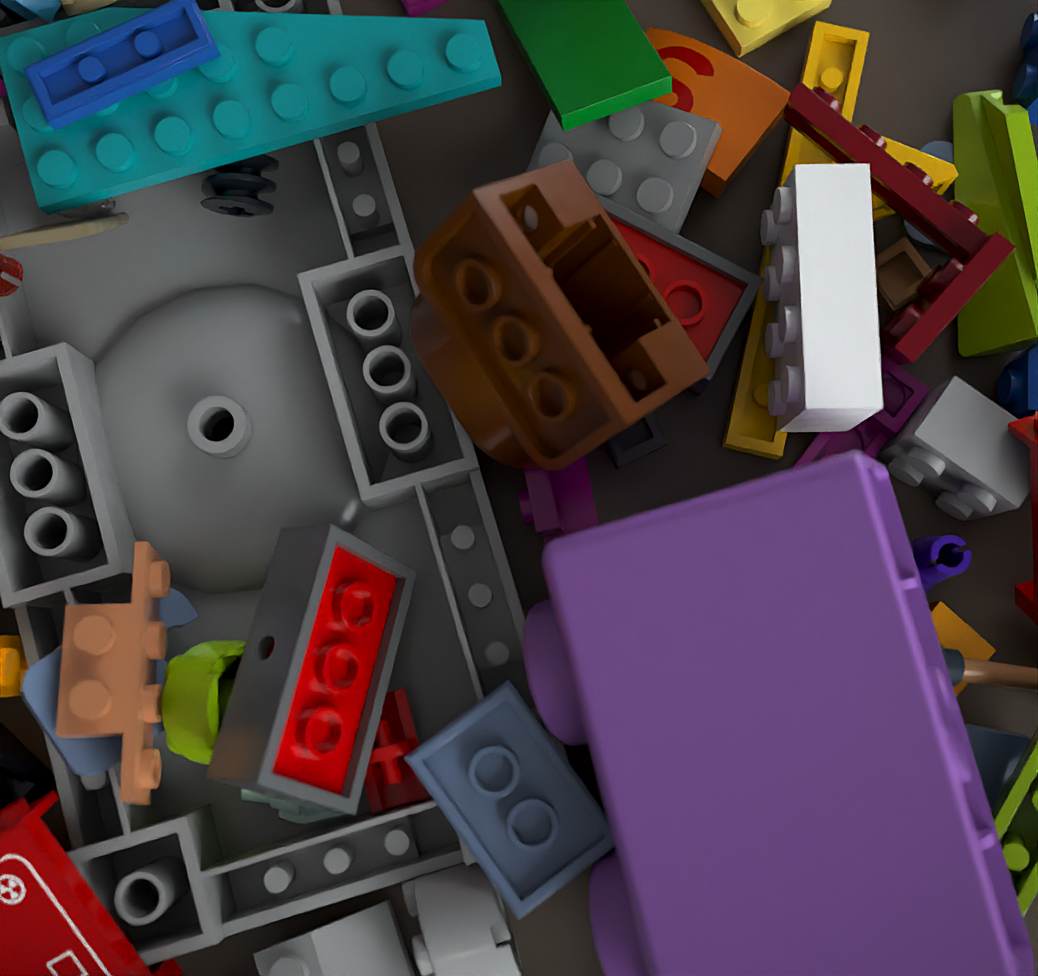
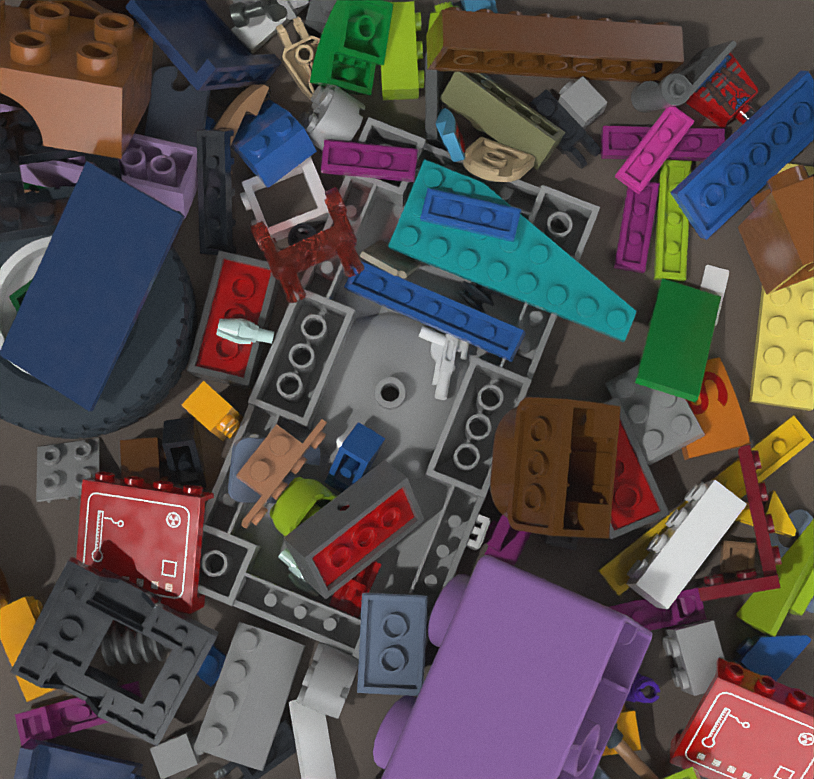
camera: 40 degrees right, 0 degrees up
(192, 252) = (437, 311): none -> blue plate
(234, 557) = (354, 457): none -> blue slope
(253, 302) = (443, 352): none -> white piece
(510, 525) = (478, 533): none -> white tile

